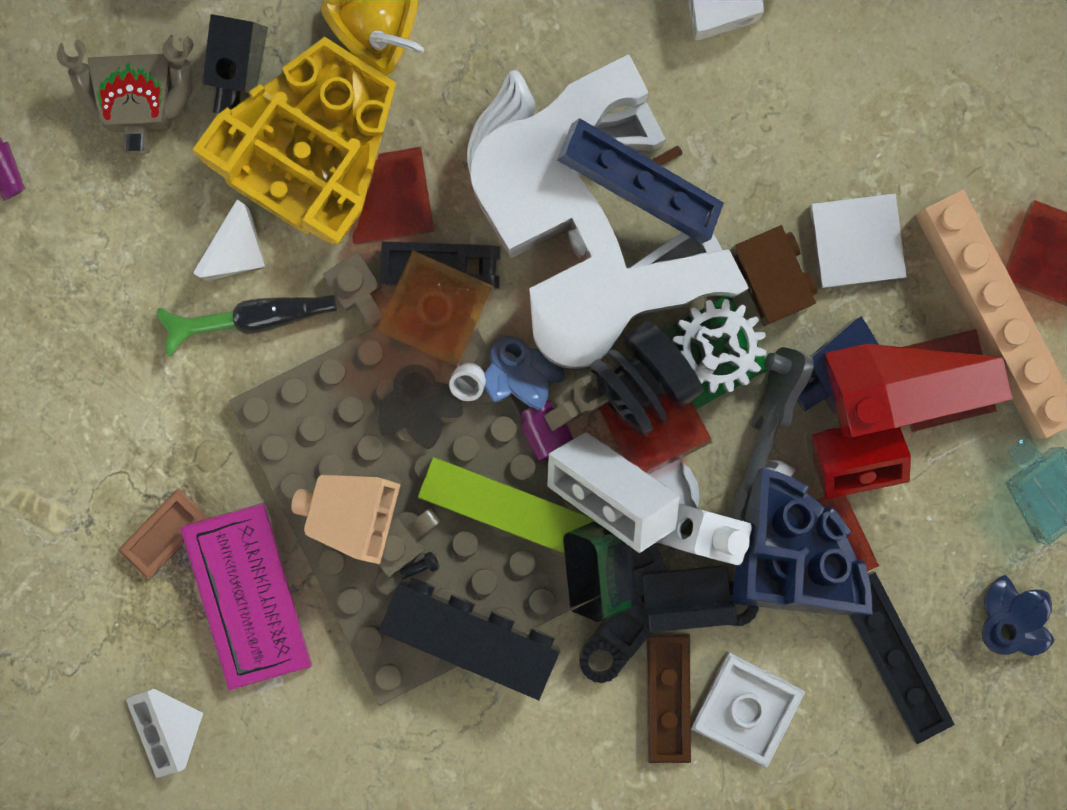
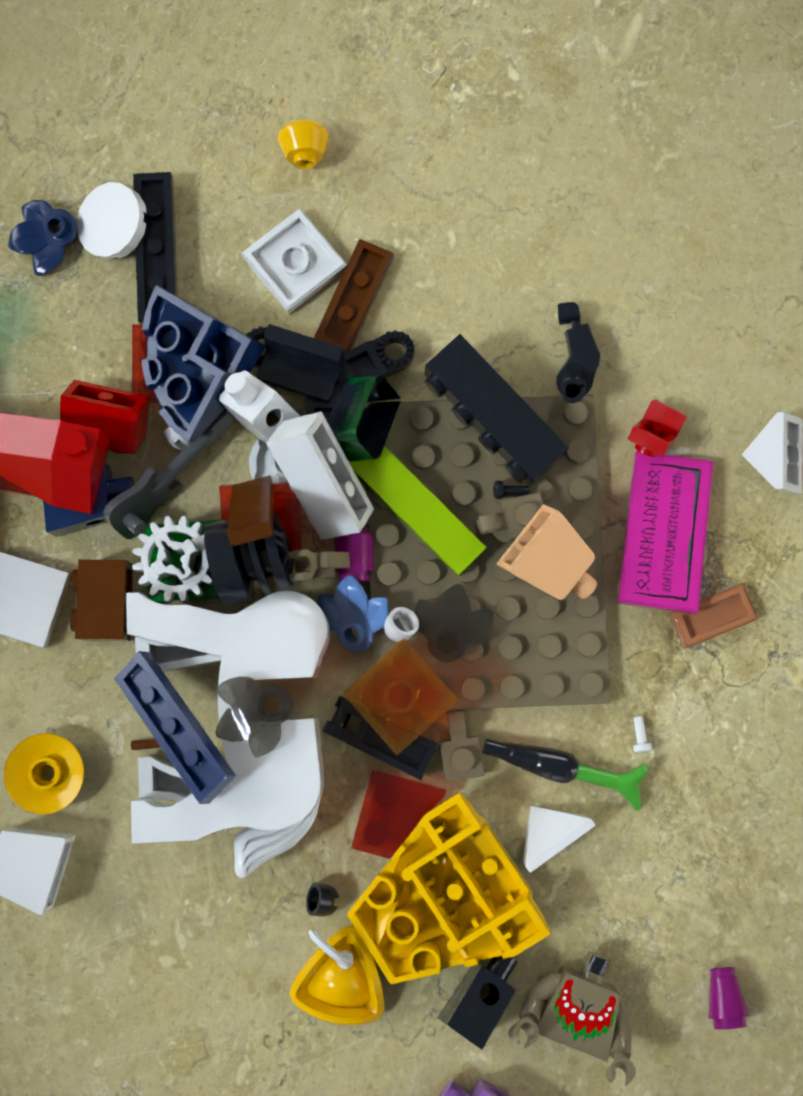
camera: 160 degrees left, 5 degrees down
(180, 373) = (642, 745): none -> white piece
(298, 696) = (657, 429): none -> red bracket
(404, 726) = (579, 370): none -> black arm
(427, 85) = (321, 900): none -> black hinge
(573, 222) = (247, 713): none -> clear smoke plate
(662, 422) = (251, 511): none -> reddish brown tile
(750, 63) = (25, 779): none -> yellow dish
(952, 664) = (111, 221): none -> white tile

